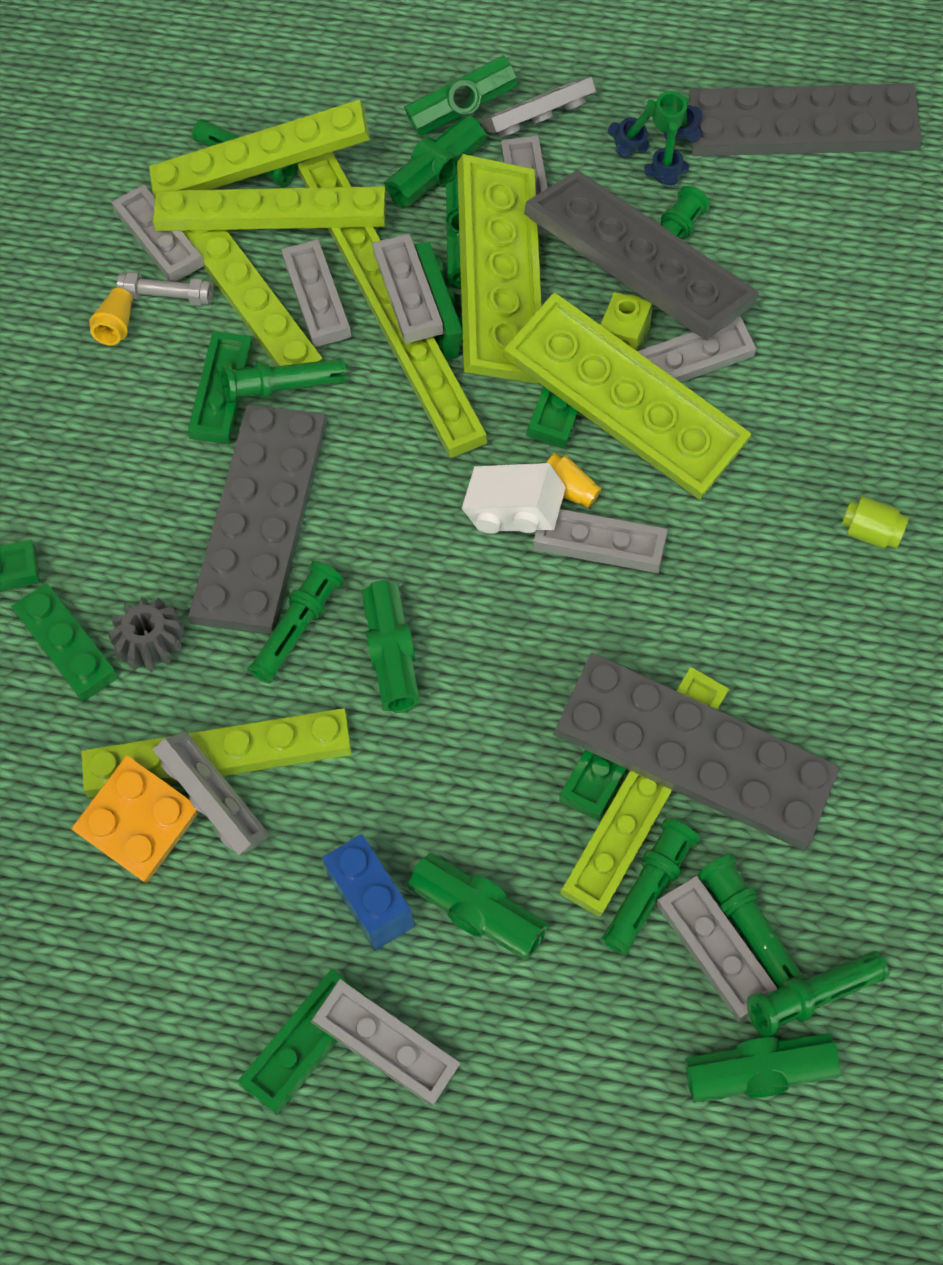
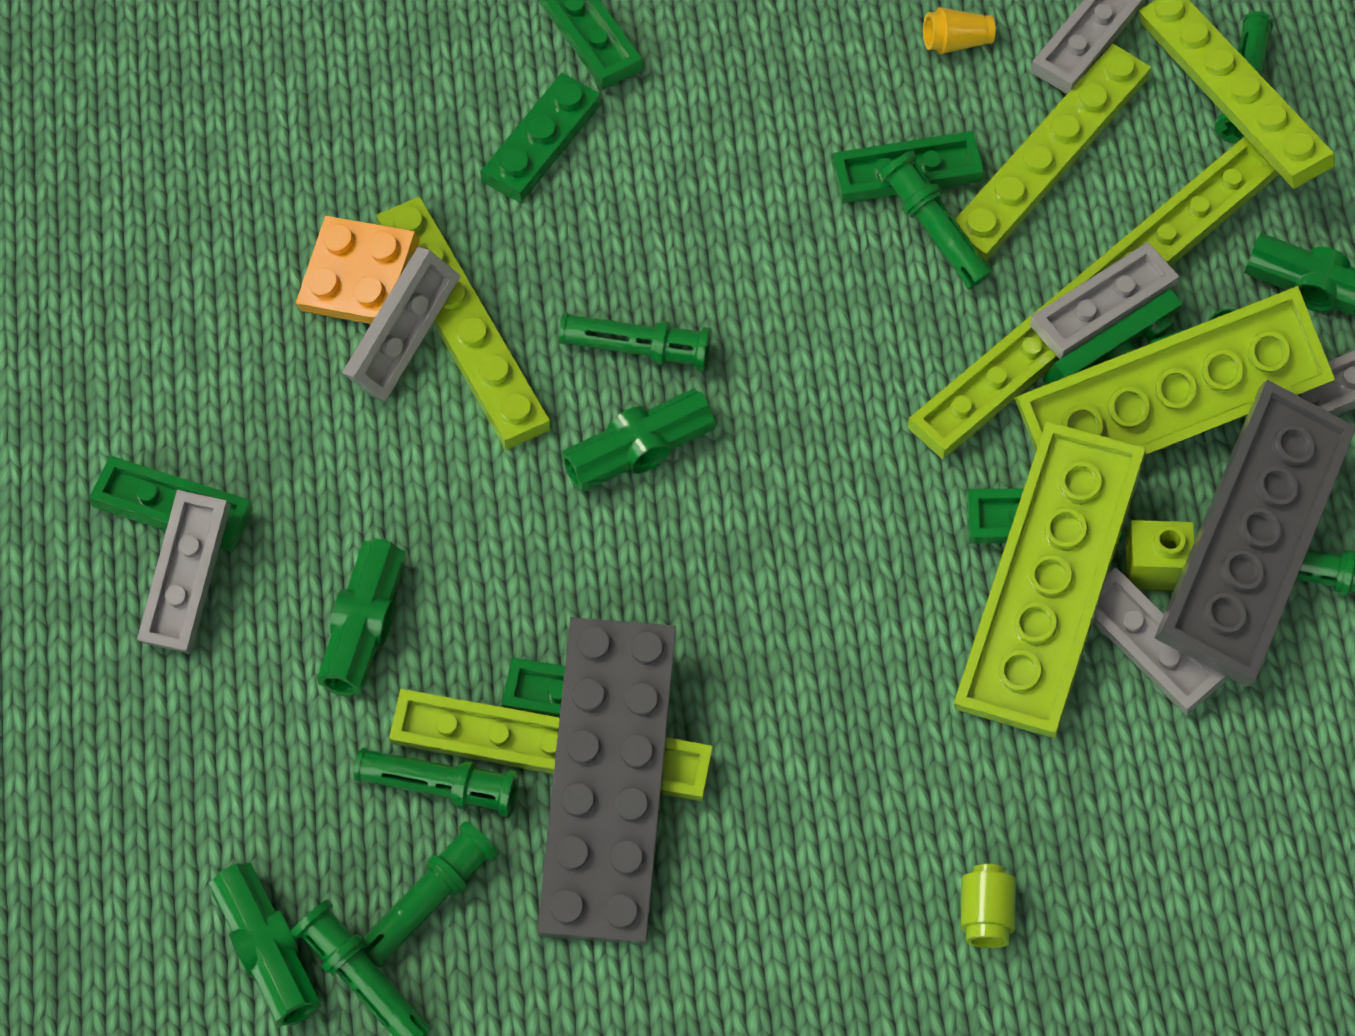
camera: 65 degrees right, 0 degrees up
(146, 634) = (570, 205): dark grey gear -> none
(197, 291) = (1027, 97): light grey bar -> none
(258, 520) = (759, 264): dark grey plate -> none
(270, 208) = (1164, 129): lime plate -> none
(316, 293) = (1074, 217): light grey plate -> none
(368, 892) = (342, 507): blue brick -> none
(514, 498) = (861, 499): white brick -> none
(578, 484) = (919, 555): yellow cone -> none
(604, 541) = (853, 613): light grey plate -> none
(715, 945) = (390, 863): light grey plate -> none

